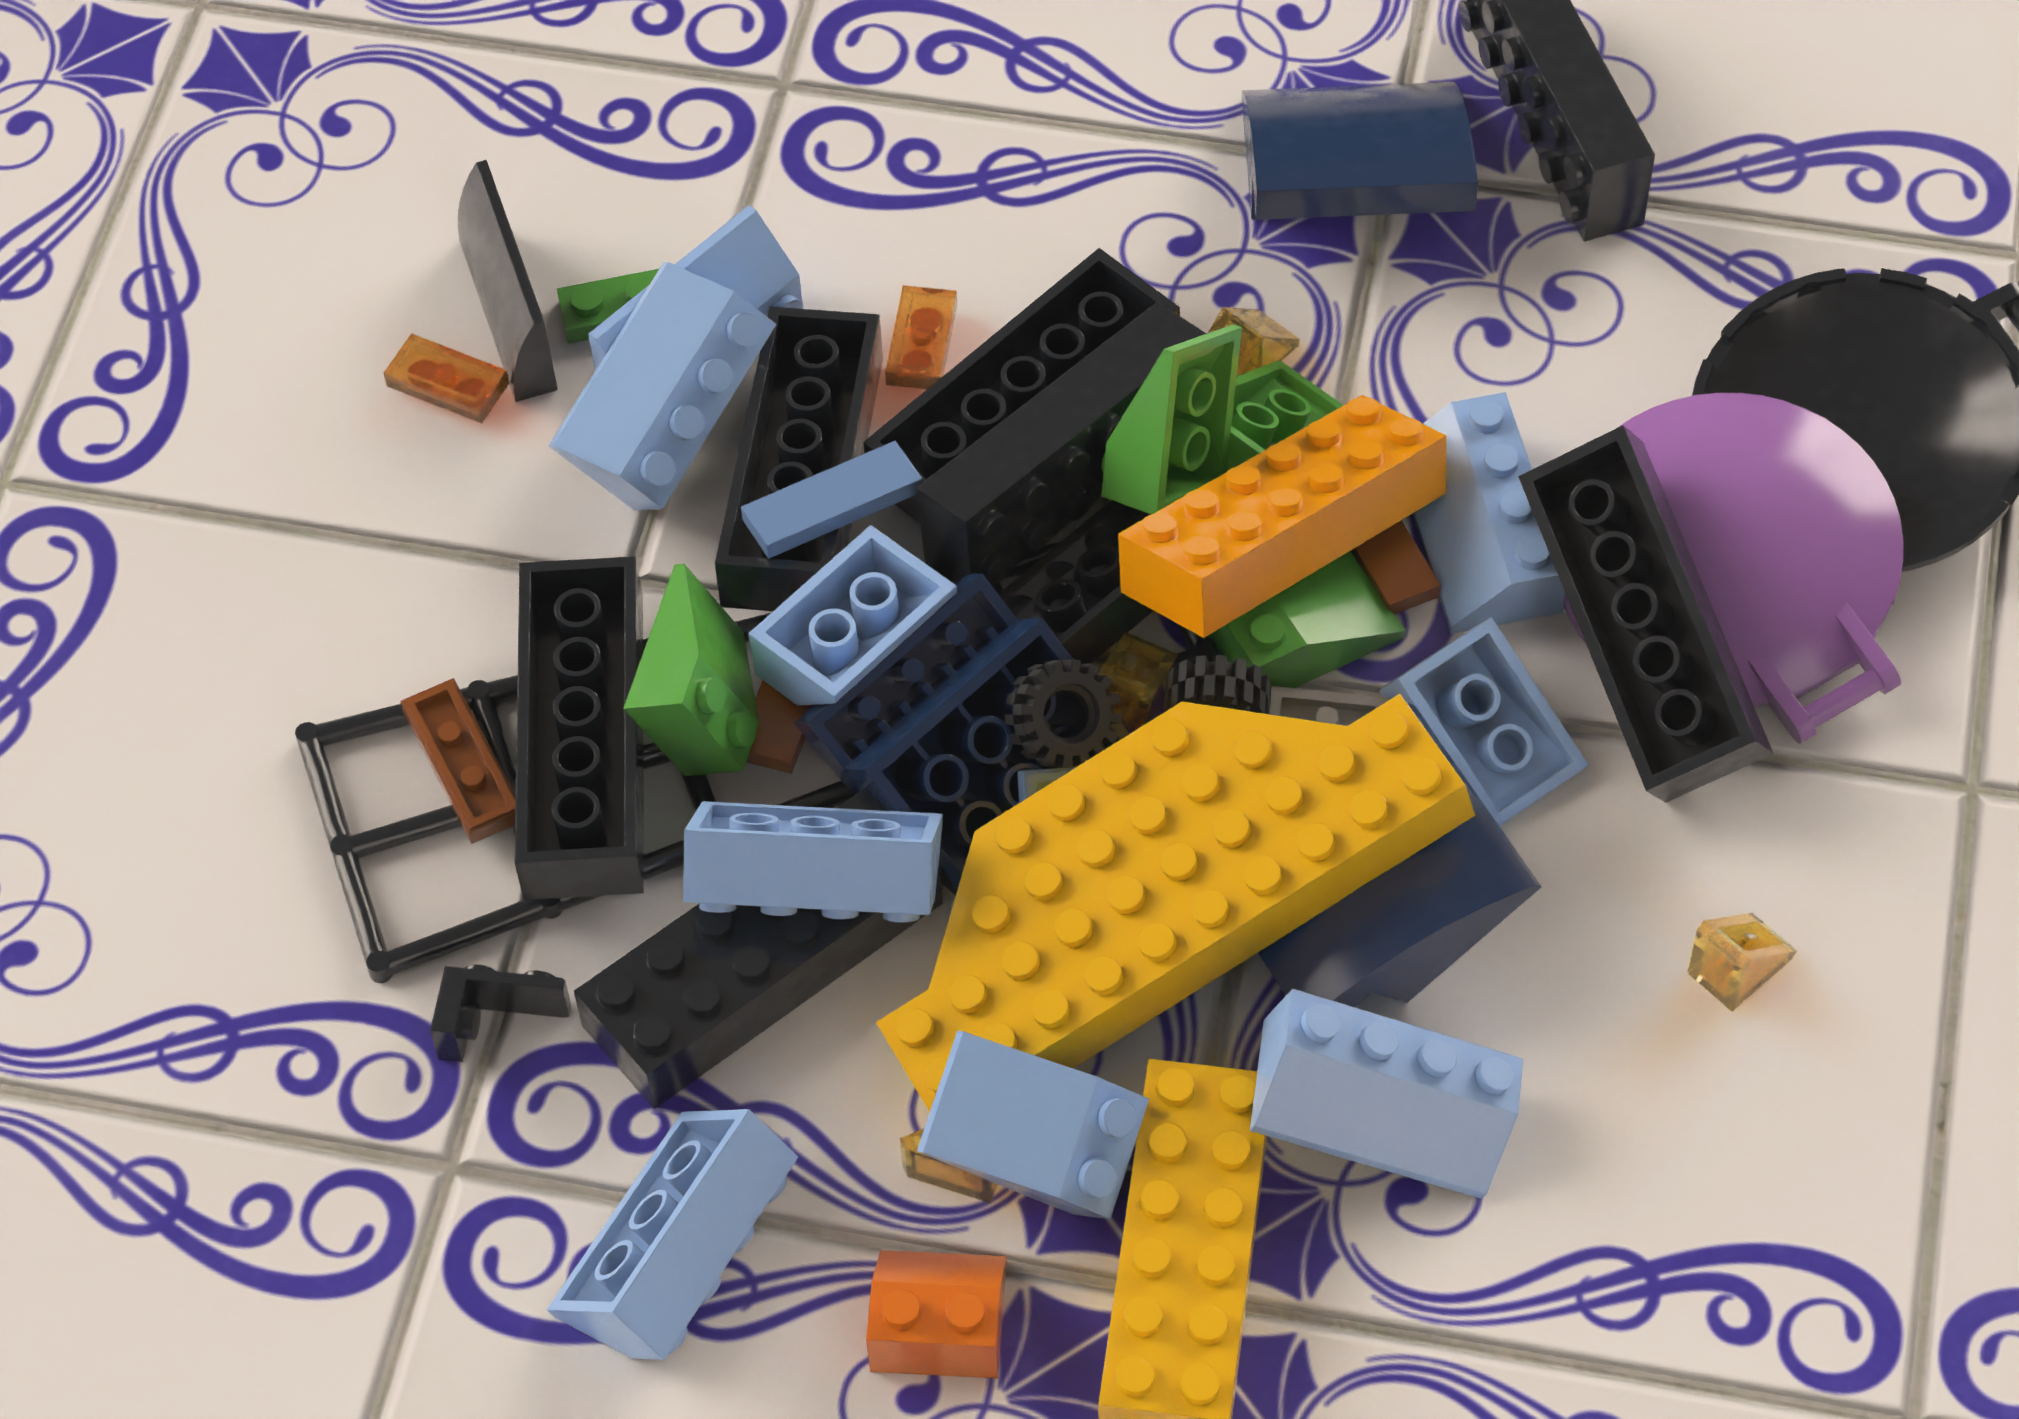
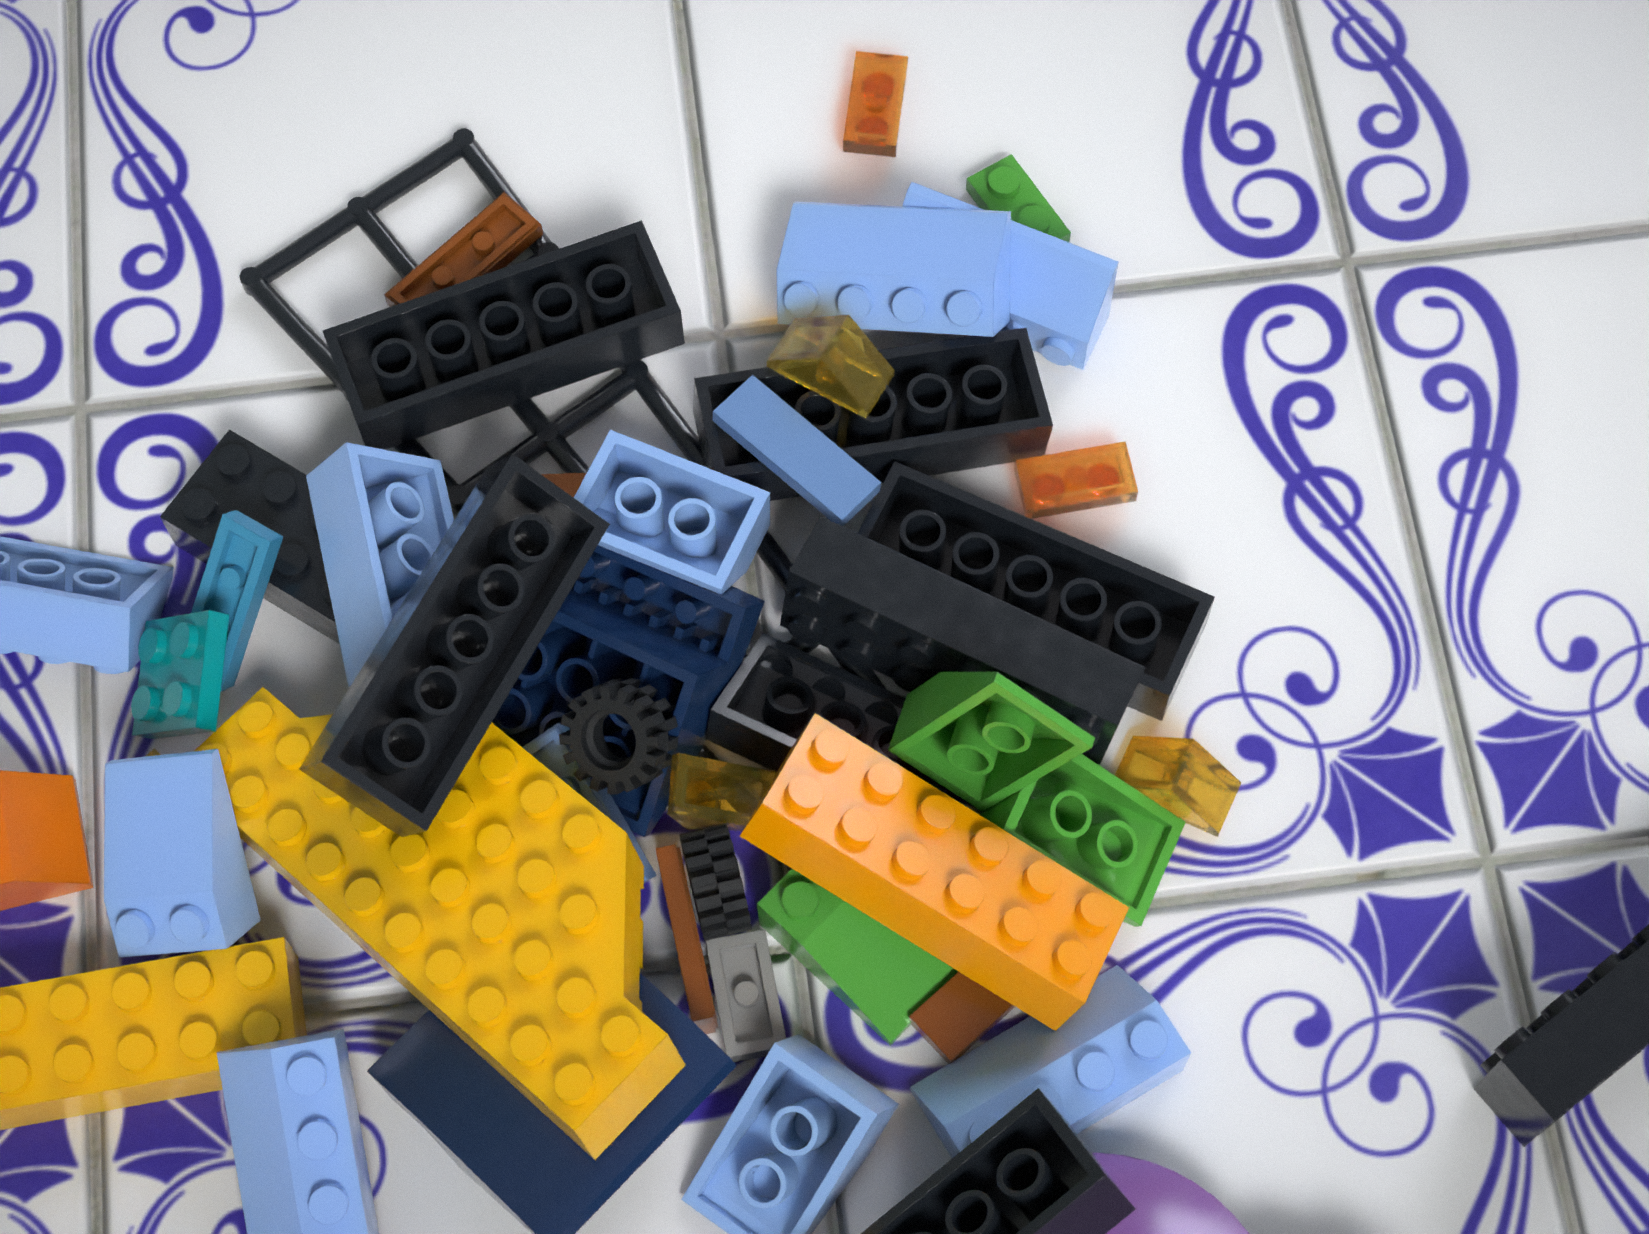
camera: 70 degrees right, 10 degrees up
(479, 987) = (219, 350): black bracket -> none
(504, 287) = (986, 111): slope -> none
(695, 682) = (564, 402): bright green slope -> none
(746, 448) = (834, 361): none -> clear yellow slope
(768, 1032) = (237, 582): none -> dark azure plate
(831, 1097) = (180, 675): none -> teal plate
(952, 776) = (455, 647): none -> black brick
(1358, 151) = (1472, 812): dark blue slope -> none

